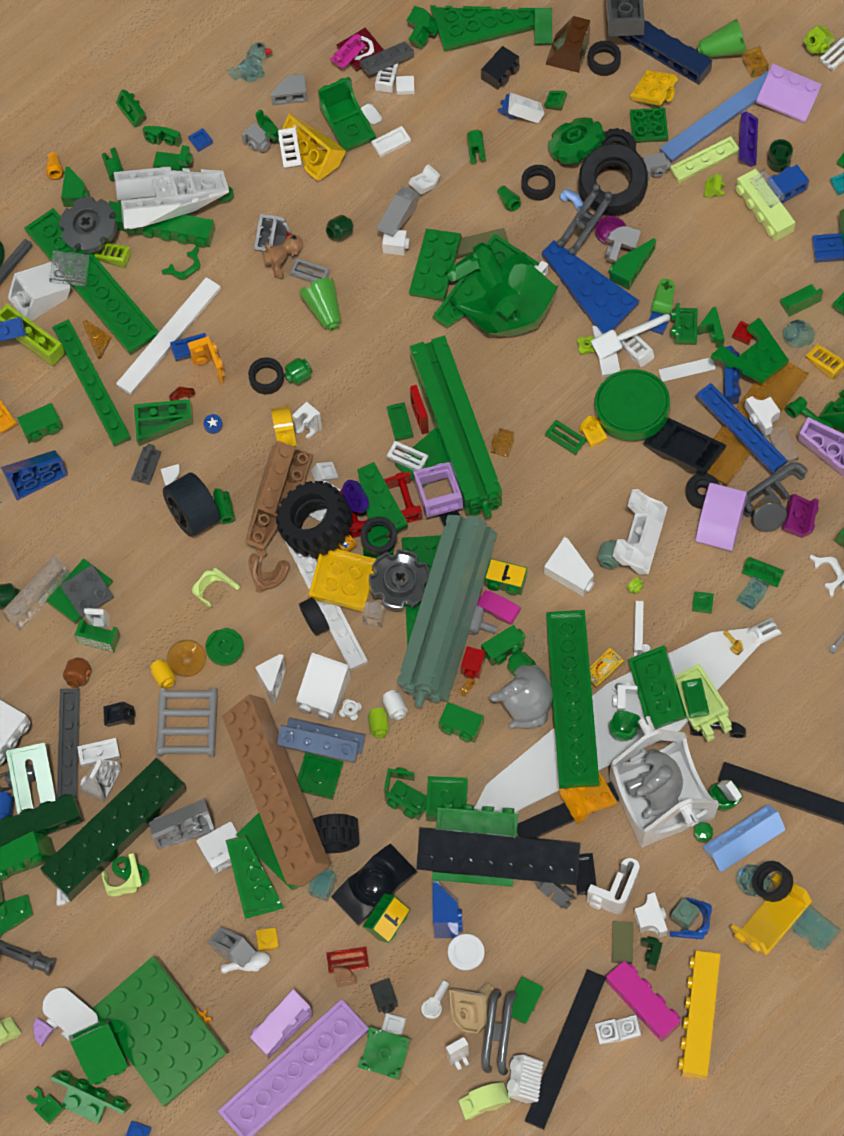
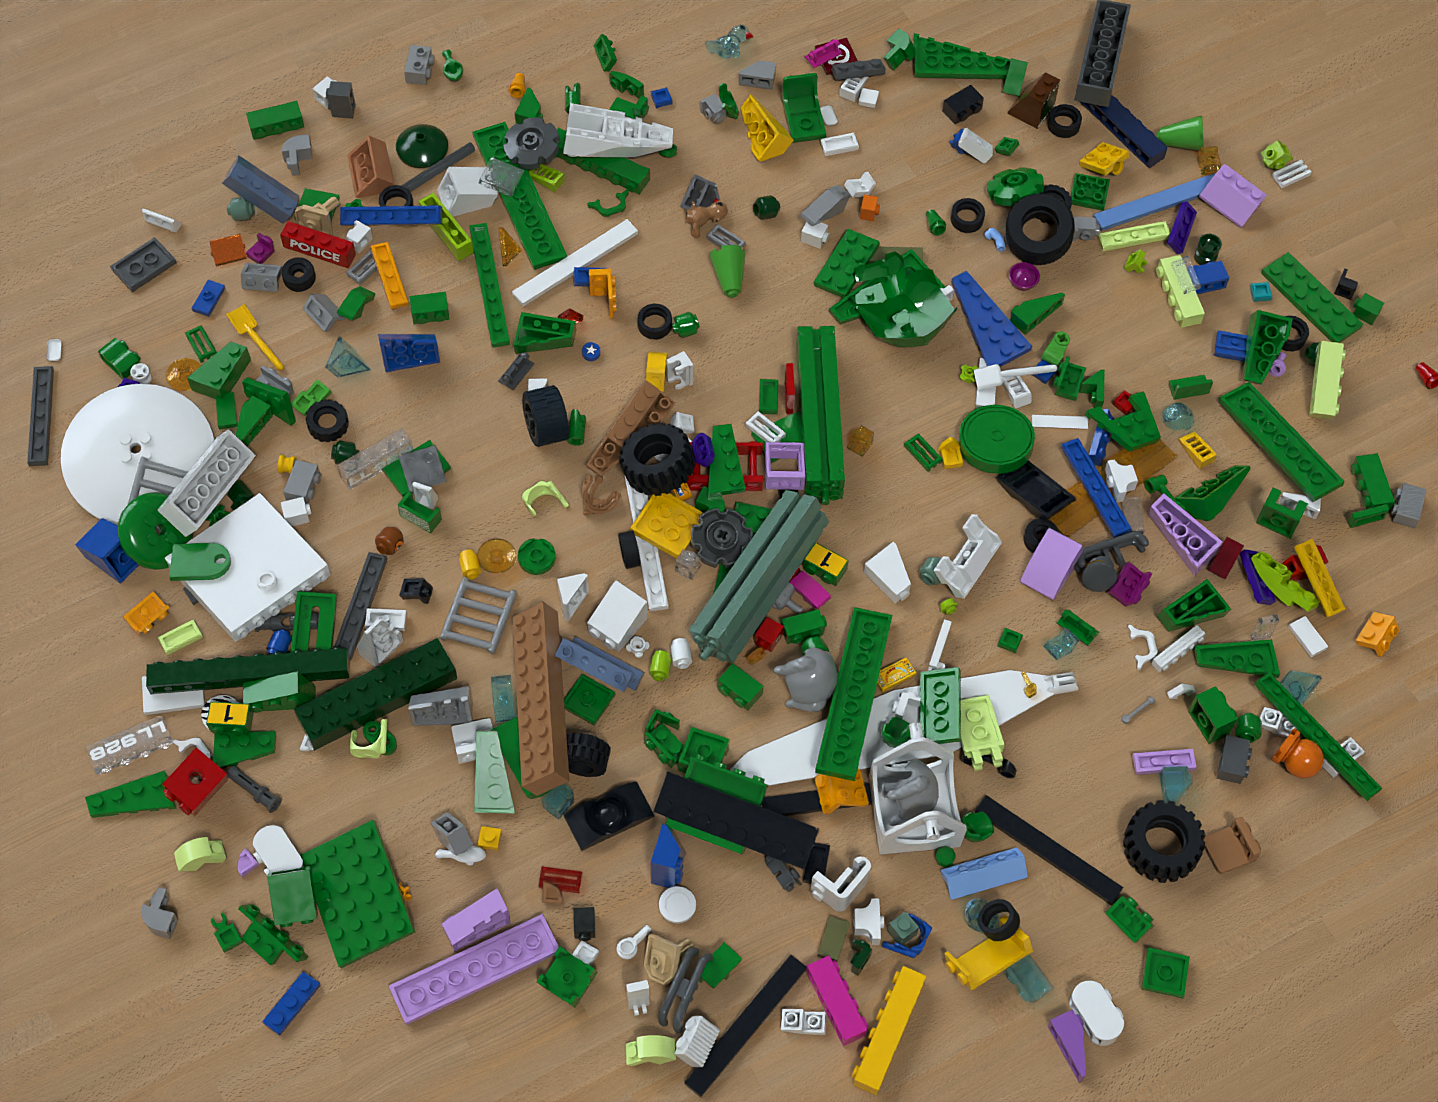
camera: 10 degrees right, 5 degrees down
(237, 798) = (502, 698): none -> clear light blue slope
(287, 132) = (739, 109): white slope -> none
(378, 521) = (713, 476): black tyre -> none
(386, 918) = (610, 849): brick -> none
(440, 201) = (869, 208): none -> orange plate
(476, 145) = (918, 167): green hinge -> none
(585, 219) = (1002, 258): dark grey piece -> none
(621, 237) = (1033, 284): light grey brick -> none
(695, 698) = (974, 725): green tile -> none
(729, 790) = (982, 822): white tile -> none

